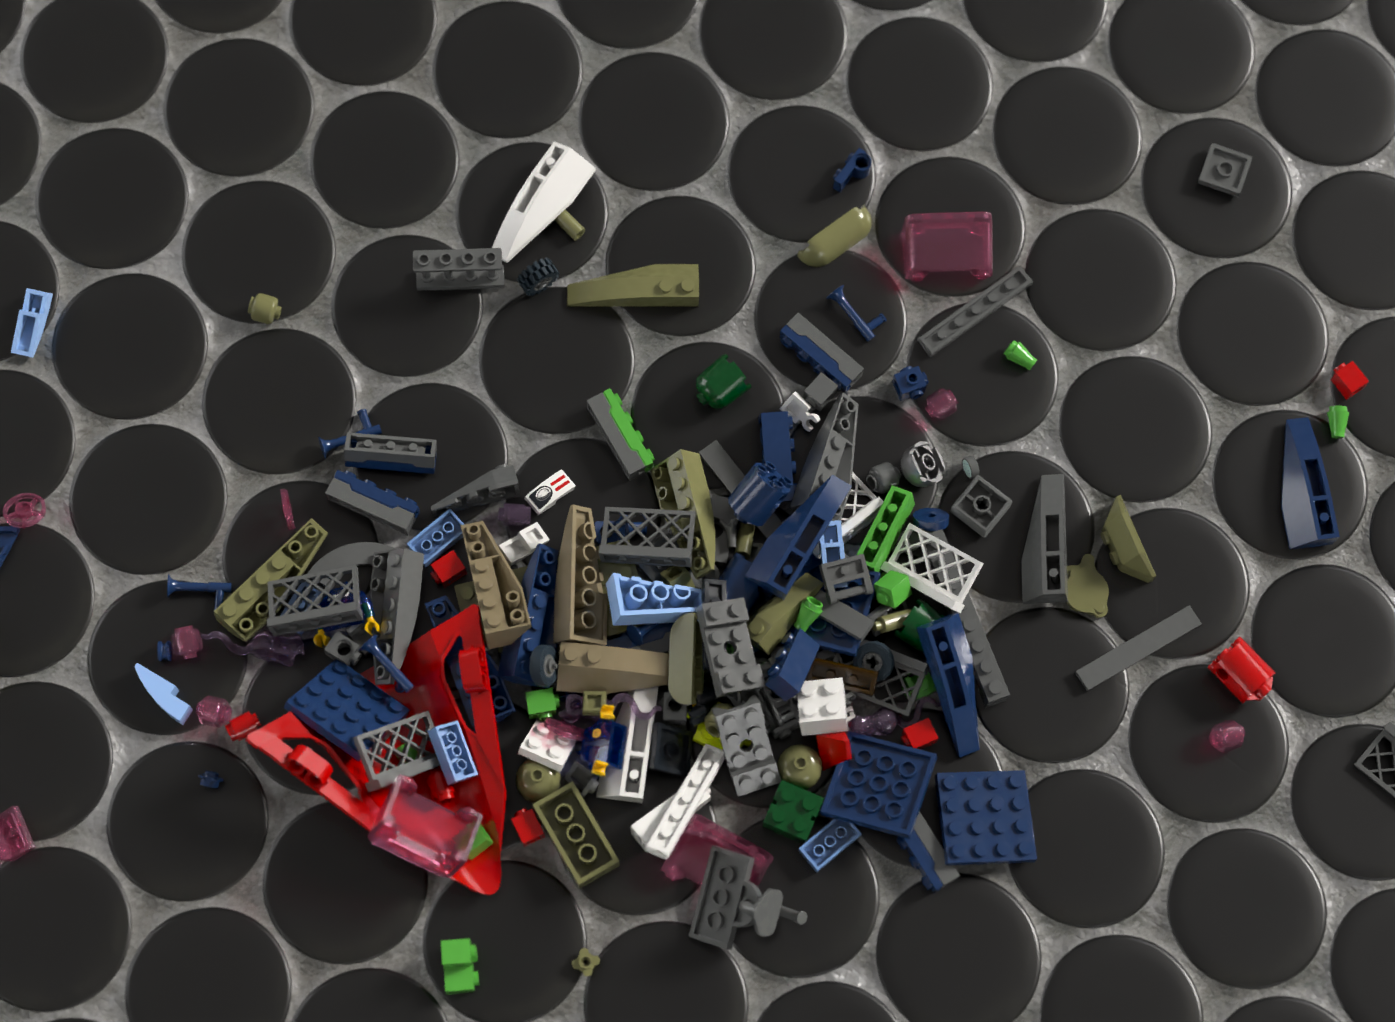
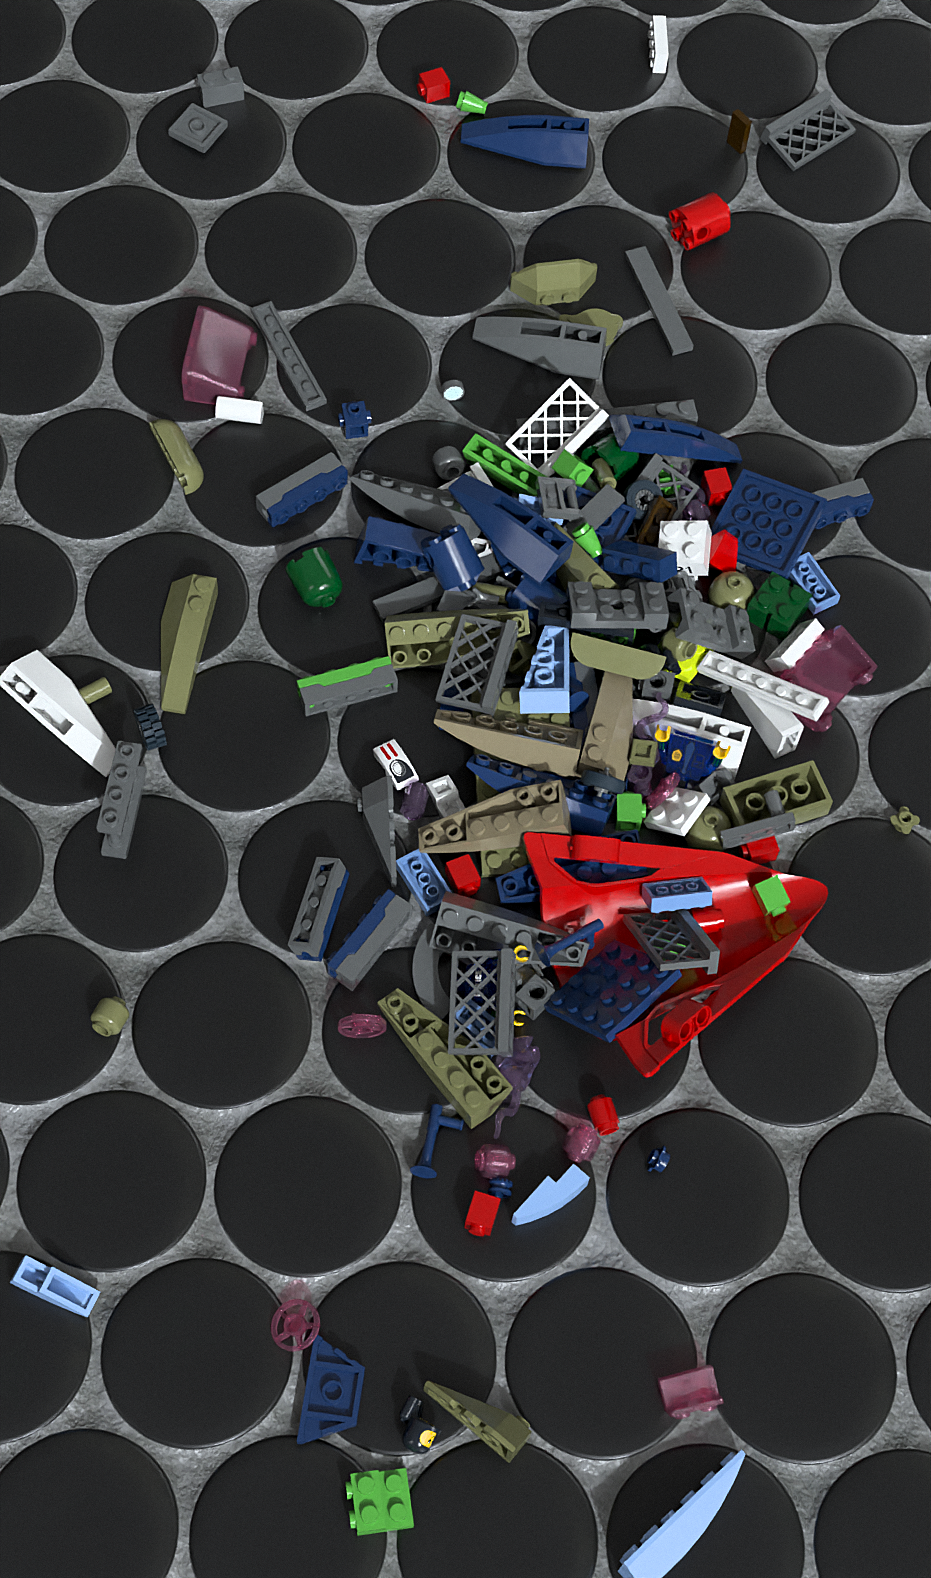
camera: 80 degrees left, 10 degrees down
(138, 640) = (482, 1214): none -> red brick
(328, 445) = (292, 977): dark blue piece -> none
(424, 830) = (767, 922): clear pink windscreen -> none
(458, 966) = (897, 936): bright green brick -> none
(542, 835) = (778, 823): none -> dark grey piece
(726, 904) = (862, 670): dark grey plate -> none
(751, 833) = (795, 645): none -> white piece
(798, 409) = (355, 520): white plate -> none
(820, 392) = (343, 498): dark grey brick -> none
(850, 170) = (104, 418): dark blue plate -> none
(865, 329) = (283, 449): dark blue piece -> none
(895, 280) = (239, 410): none -> white brick
(922, 465) = (445, 427): flat silver cylinder -> none
(931, 519) = (501, 429): dark blue piece -> none
(941, 404) = (381, 399): clear pink head -> none
(981, 492) = (495, 388): dark grey brick -> none
(985, 817) = (807, 448): dark blue plate -> none
(1019, 354) = (344, 327): bright green cone -> none
(1227, 736) = (756, 249): clear pink head -> none
(1281, 178) = (220, 87): none -> dark grey brick
(1376, 695) = (739, 131): none -> dark brown tile

